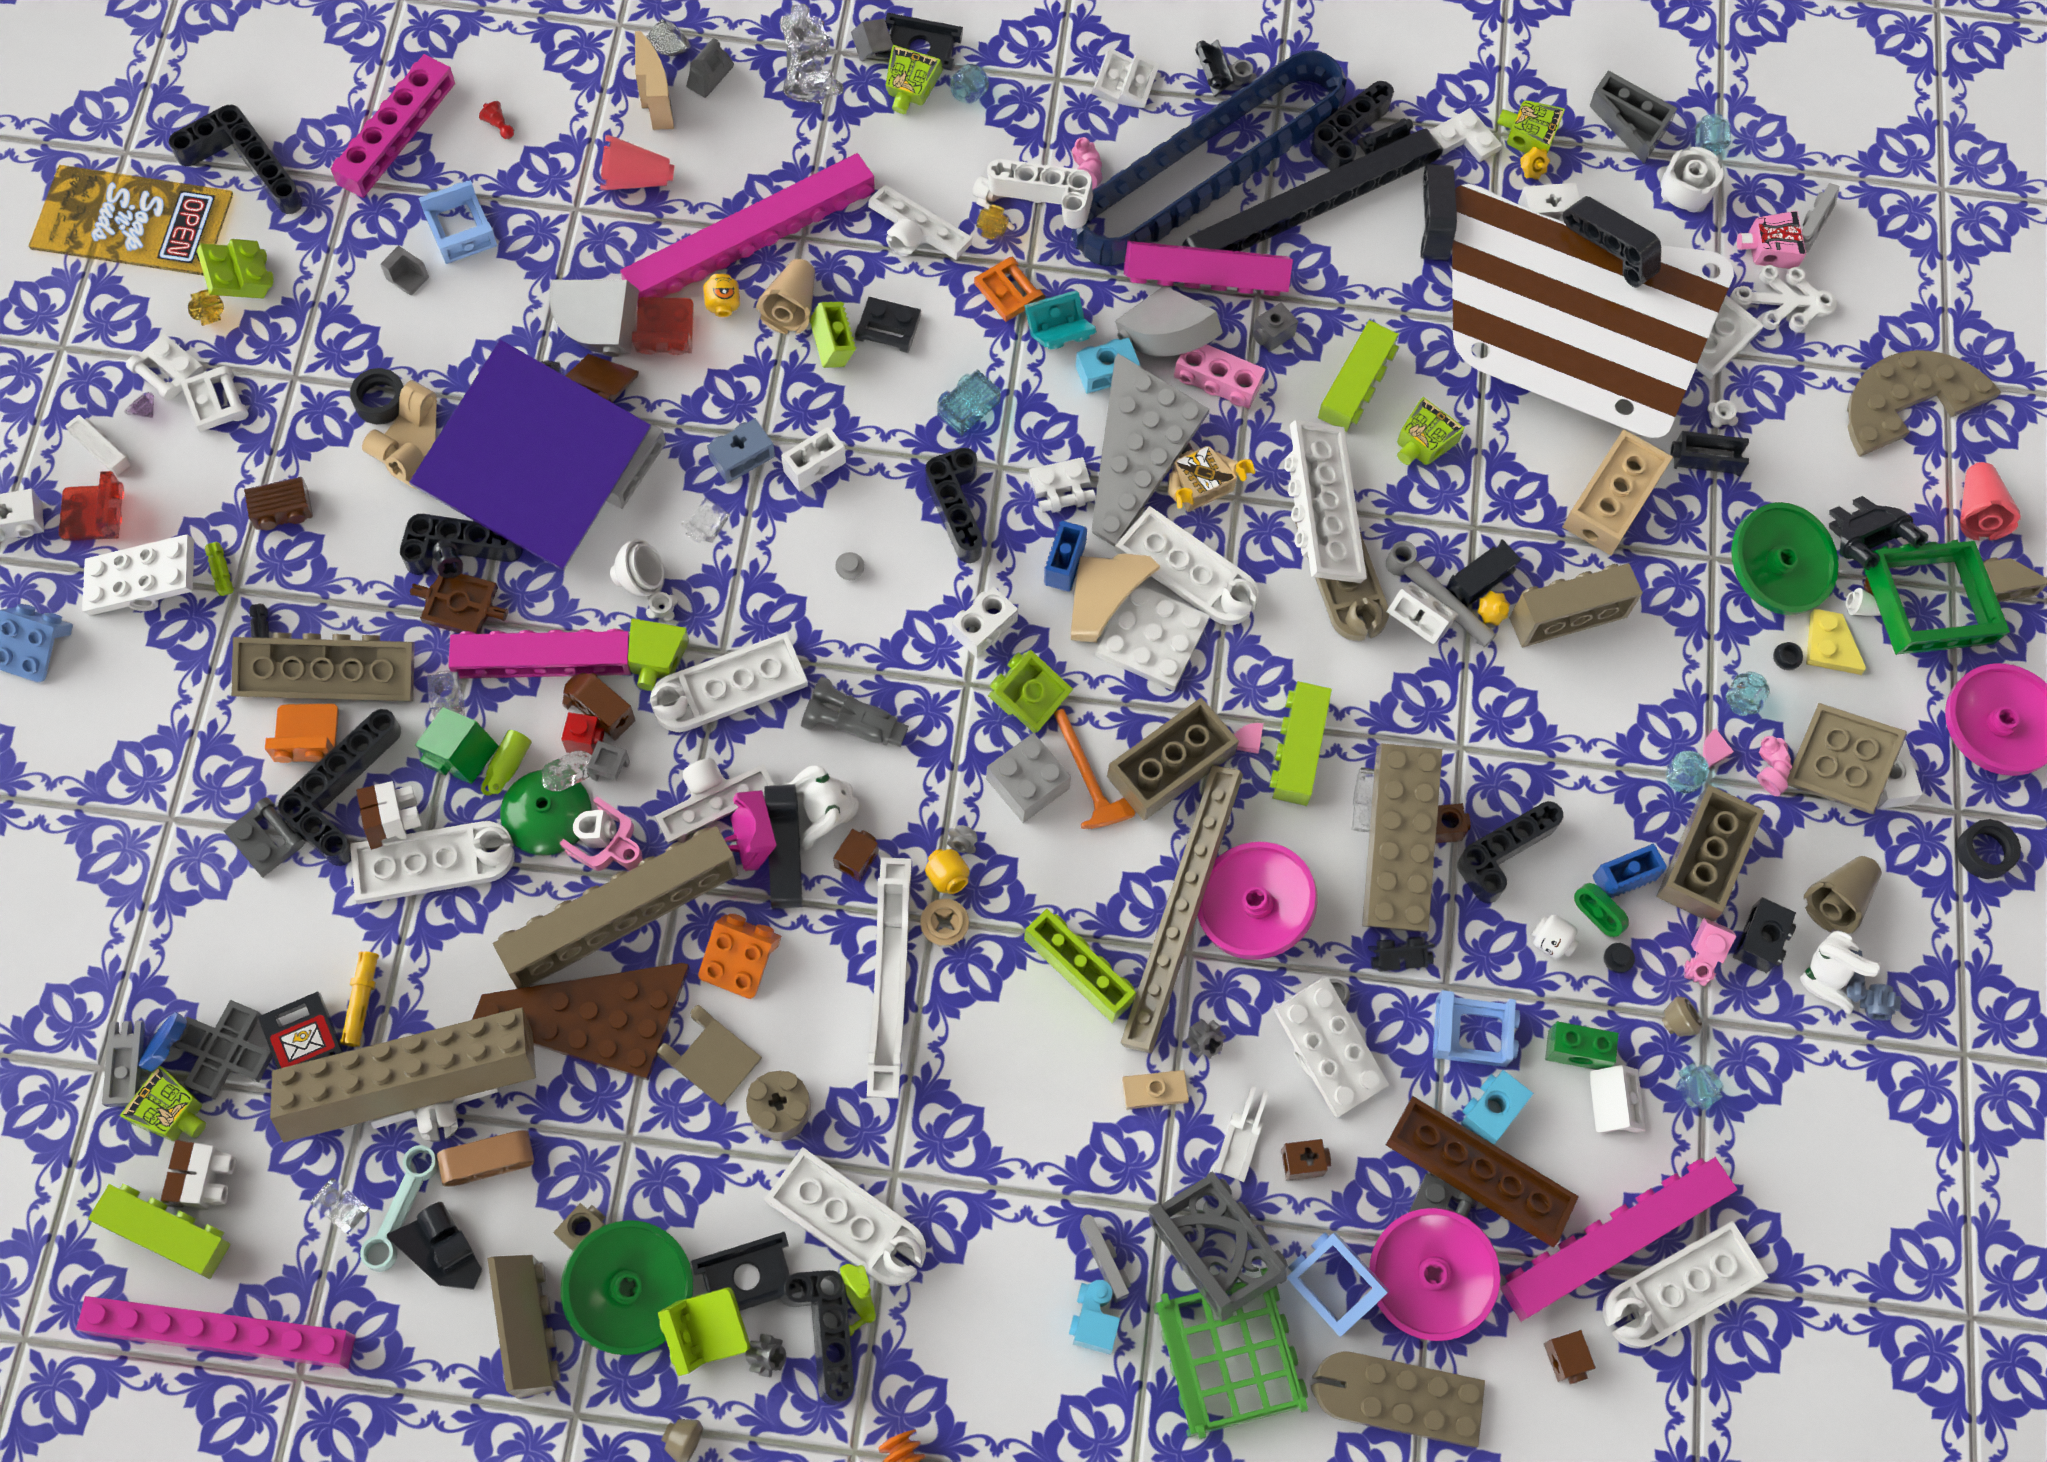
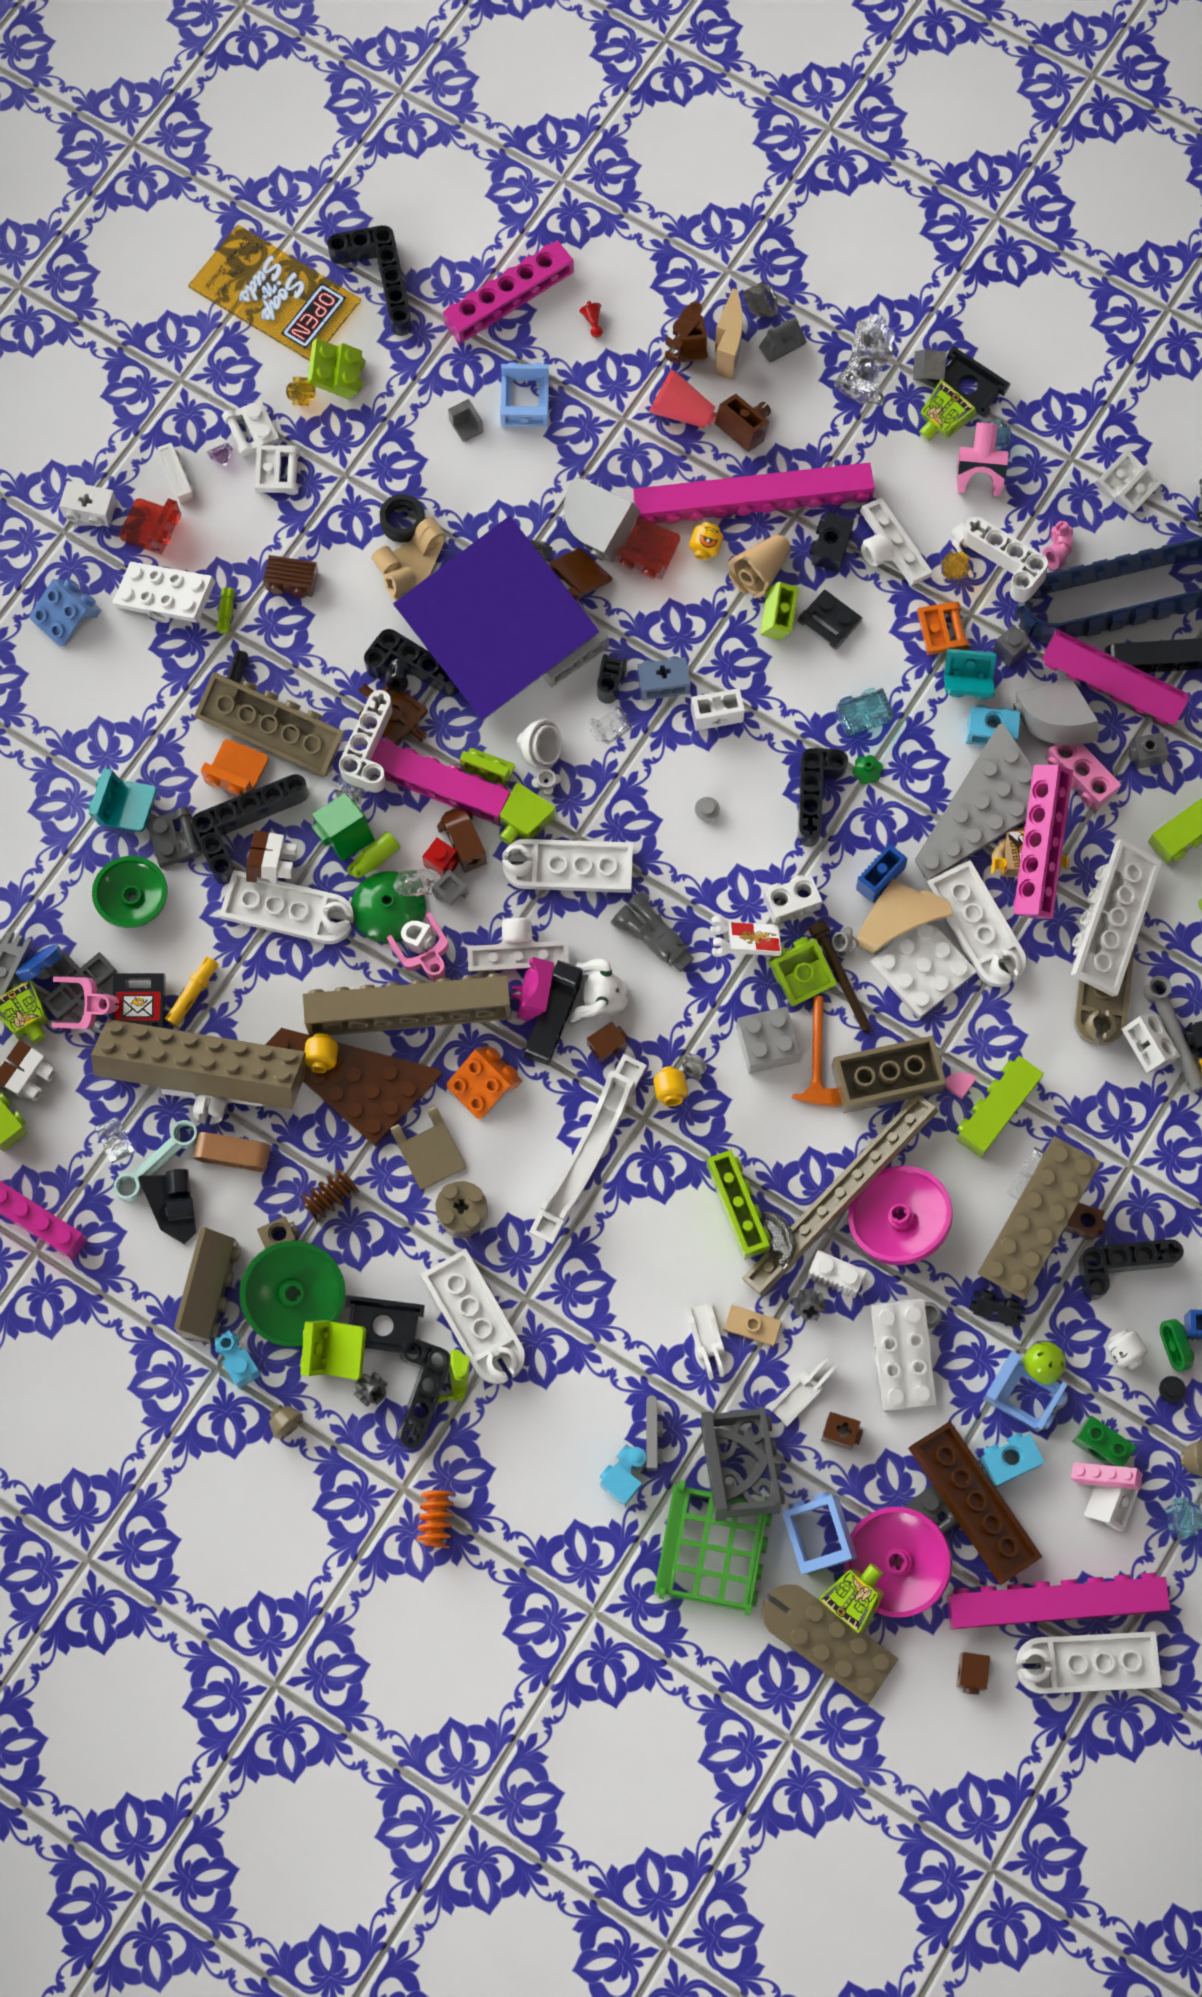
camera: 30 degrees right, 5 degrees up
(186, 823) = (121, 802): none -> teal bracket
(227, 903) = (125, 878): none -> green dish
(248, 1061) = (93, 1003): none -> bright pink piece
(446, 636) = (369, 738): none -> white beam
(541, 1001) = (321, 1053): none -> yellow head
(590, 616) = (487, 766): none -> lime bracket
(598, 1395) = (238, 1361): none -> medium azure brick
(611, 99) = (690, 336): none -> reddish brown piece
(619, 1156) = (328, 1194): none -> reddish brown piece
(682, 469) = (610, 674): none -> black piece
(705, 162) = (743, 422): none -> reddish brown brick
(853, 232) = (836, 529): none -> black brick
(944, 908) = (655, 1114): tan gear -> none
(955, 681) = (746, 938): none -> flag
(971, 107) = (983, 459): none -> bright pink connector
(998, 459) = (867, 773): none -> green plant
(1030, 641) = (821, 933): none -> dark brown piece
(1052, 642) = (839, 944): none -> light grey plate
(1061, 478) = (909, 806): white plate -> none
(1088, 277) = (1011, 646): none -> flat silver brick
(1112, 1125) = (706, 1336): none -> white arm
(1145, 980) = (782, 1238): none -> clear smoke piece
(1218, 993) = (836, 1274): none -> white brick
(1222, 436) = (1043, 841): none -> dark pink brick
(1409, 1334) = (855, 1597): none -> lime torso
(1473, 988) = (1039, 1365): none -> lime helmet
(1603, 1078) = (1106, 1476): none -> bright pink piece

